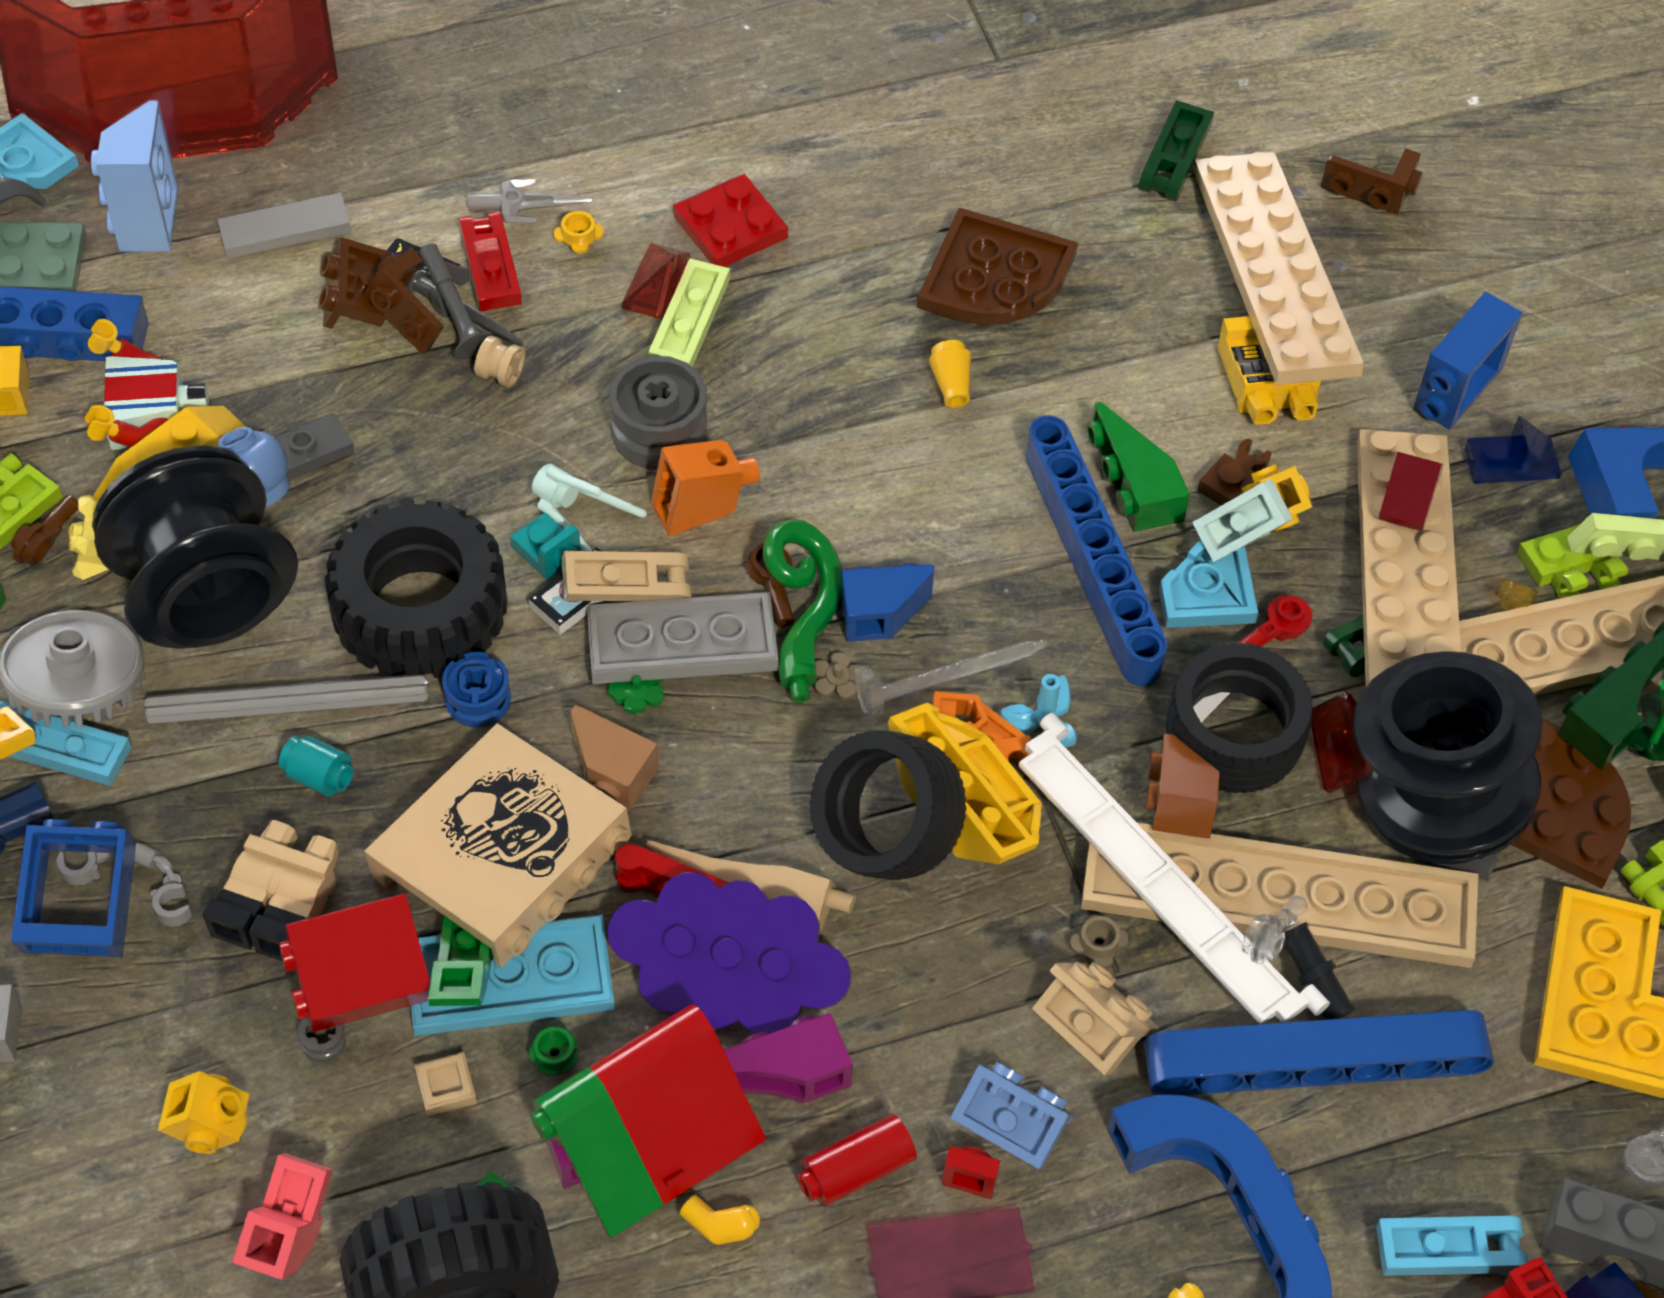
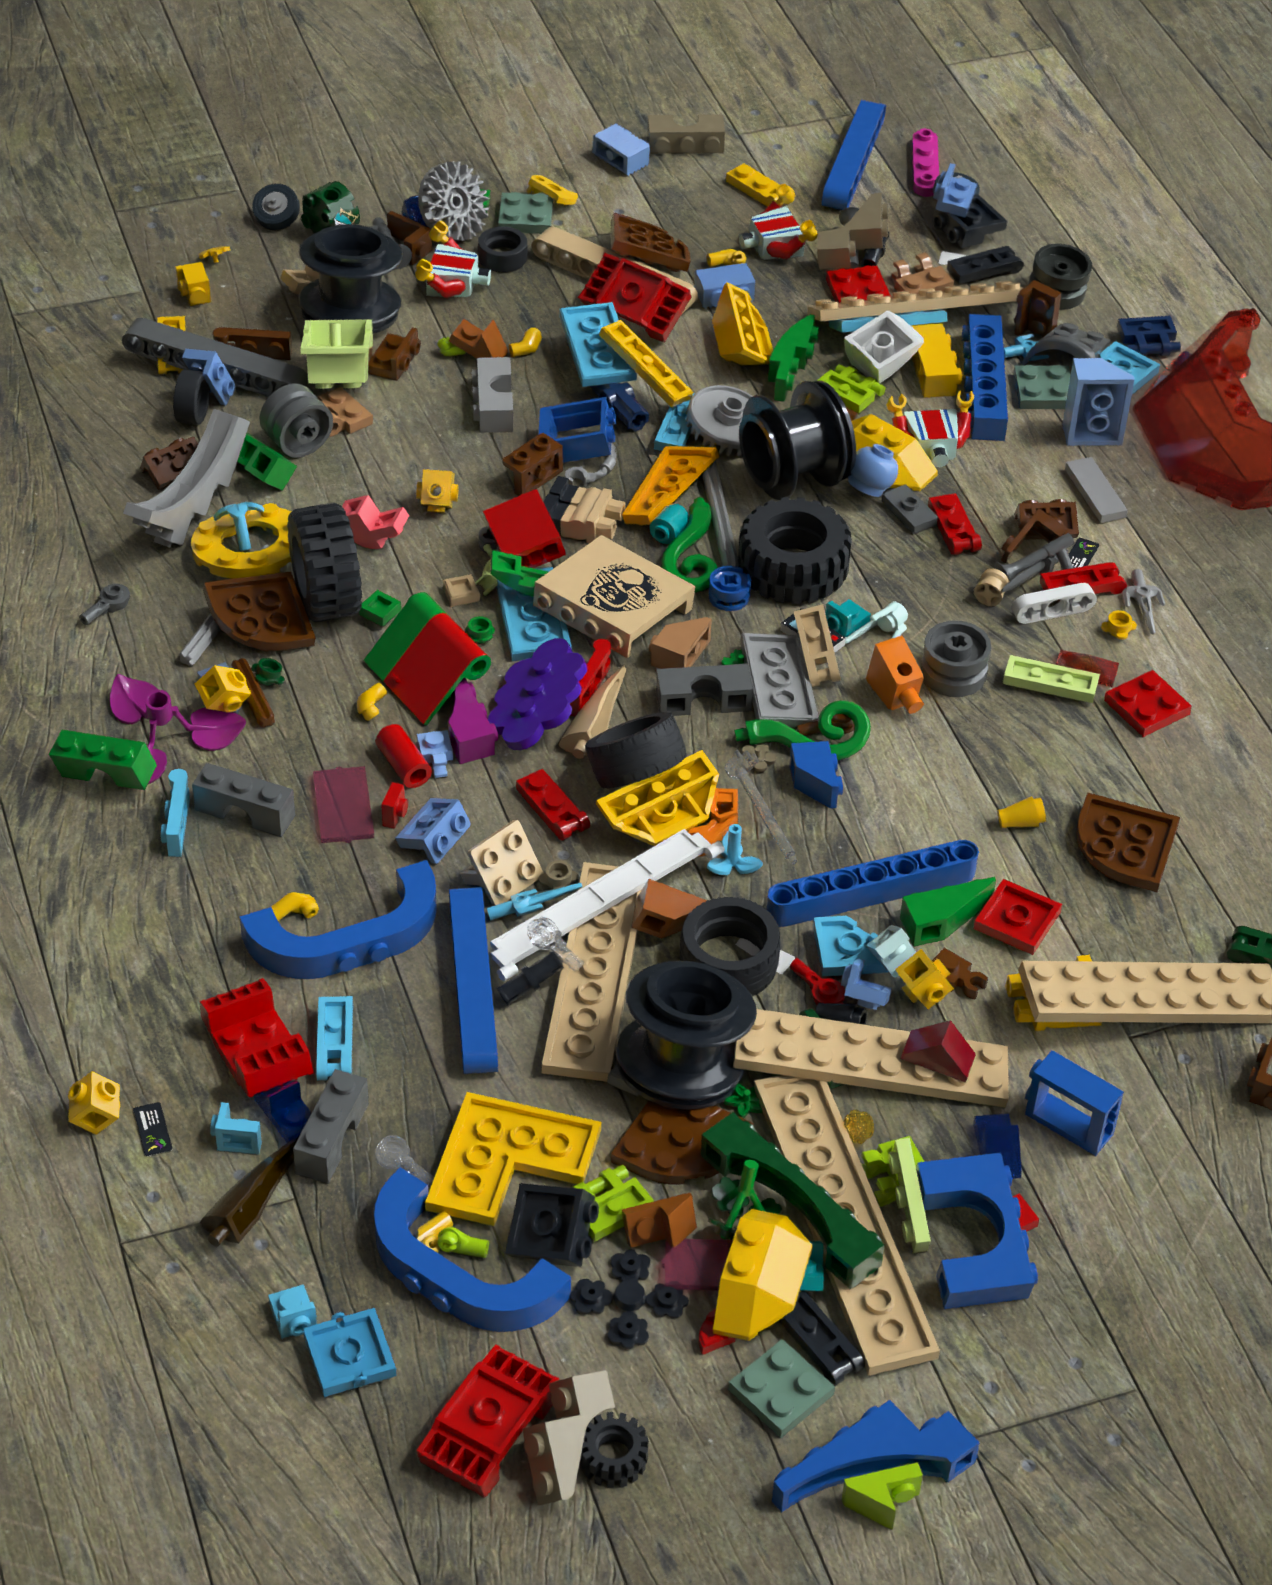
camera: 90 degrees right, 10 degrees down
(152, 955) = (535, 463): none -> reddish brown bracket
(205, 757) = (667, 480): none -> light orange wing
(331, 729) = (698, 525): none -> green plant
(347, 396) = (954, 524): none -> red plate
(440, 1037) = (487, 580): none -> yellowish green piece
(536, 295) = (1034, 606): none -> white beam
(711, 764) = (724, 683): none -> dark grey arch
(828, 1117) = (436, 750): none -> light blue plate
(946, 948) = (552, 804): none -> red plate
(1140, 393) = (1017, 916): none -> red plate
(1161, 987) = (528, 902): none -> medium azure piece
(1303, 560) = (868, 993): none -> medium blue bracket
(1335, 599) = (842, 1012): none -> black cone

